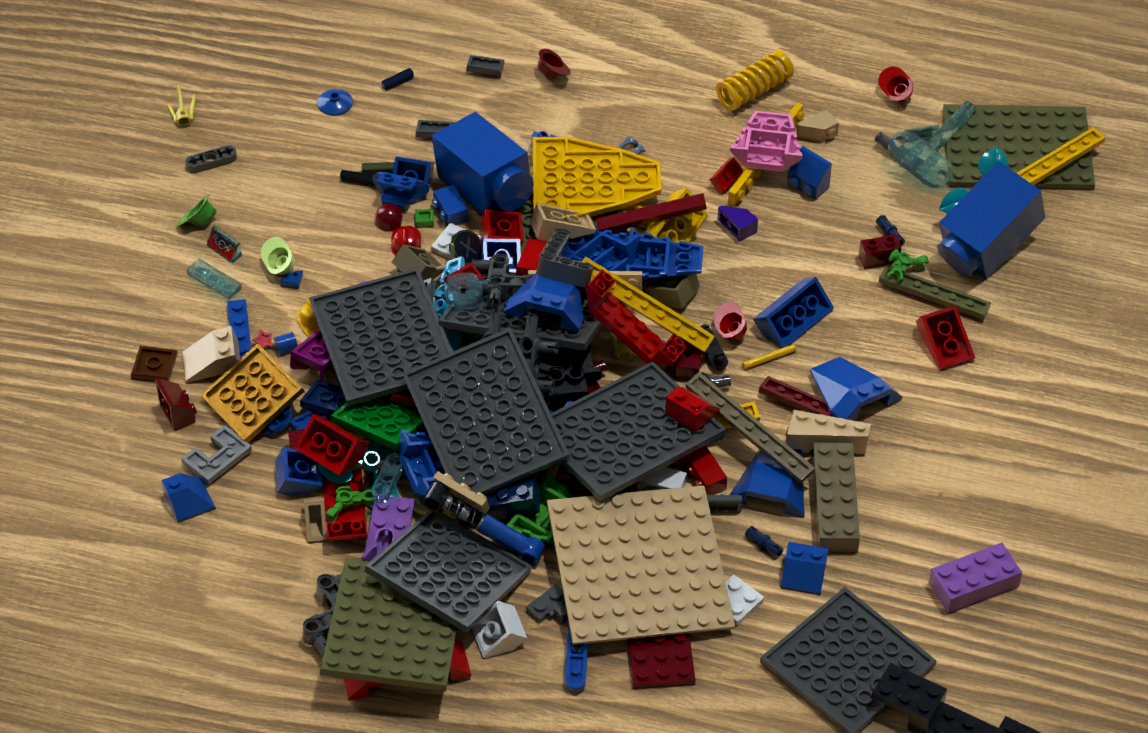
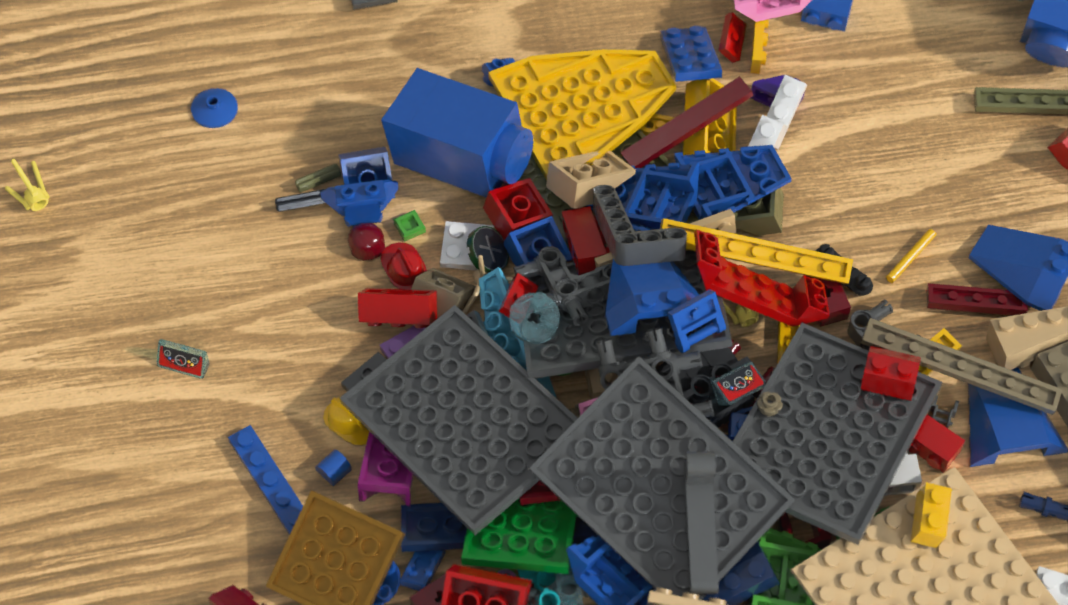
camera: 25 degrees left, 10 degrees up
(154, 363) = (180, 564): reddish brown tile -> none
(198, 158) = (100, 253): dark grey beam -> none
(200, 214) = (127, 327): bright green piece -> none
(211, 355) = (251, 526): tan slope -> none
(214, 278) = (194, 411): clear light blue plate -> none
(263, 339) = (303, 473): coral piece -> none
(277, 256) = (261, 350): yellowish green piece -> none
(292, 280) = (293, 373): blue tile -> none
(381, 259) = (397, 307): none -> red brick
(397, 78) = (275, 49): dark blue axle -> none
(426, 128) = (358, 101): dark grey plate -> none
(450, 205) = (435, 199): blue brick -> none
(506, 419) = (700, 519): none -> dark grey beam
(564, 315) = (693, 315): none -> blue plate
(581, 380) = (737, 384): none -> slope
(593, 397) = (766, 408): none -> dark tan plate
(629, 140) = (596, 32): sand blue piece -> none
(662, 502) = (931, 515): none -> yellow brick
(685, 172) = (691, 54): none -> blue plate
(720, 240) = (774, 126): none -> white bracket
(725, 503) = (977, 474): dark grey plate -> none
(730, 321) = (847, 228): piece -> none
(734, 462) = (934, 408): none -> dark grey piece
(794, 312) = (908, 187): blue slope -> none
(877, 250) = (958, 72): dark red brick -> none
(888, 228) = (952, 41): dark blue pin -> none
(902, 261) = (993, 78): bright green piece -> none

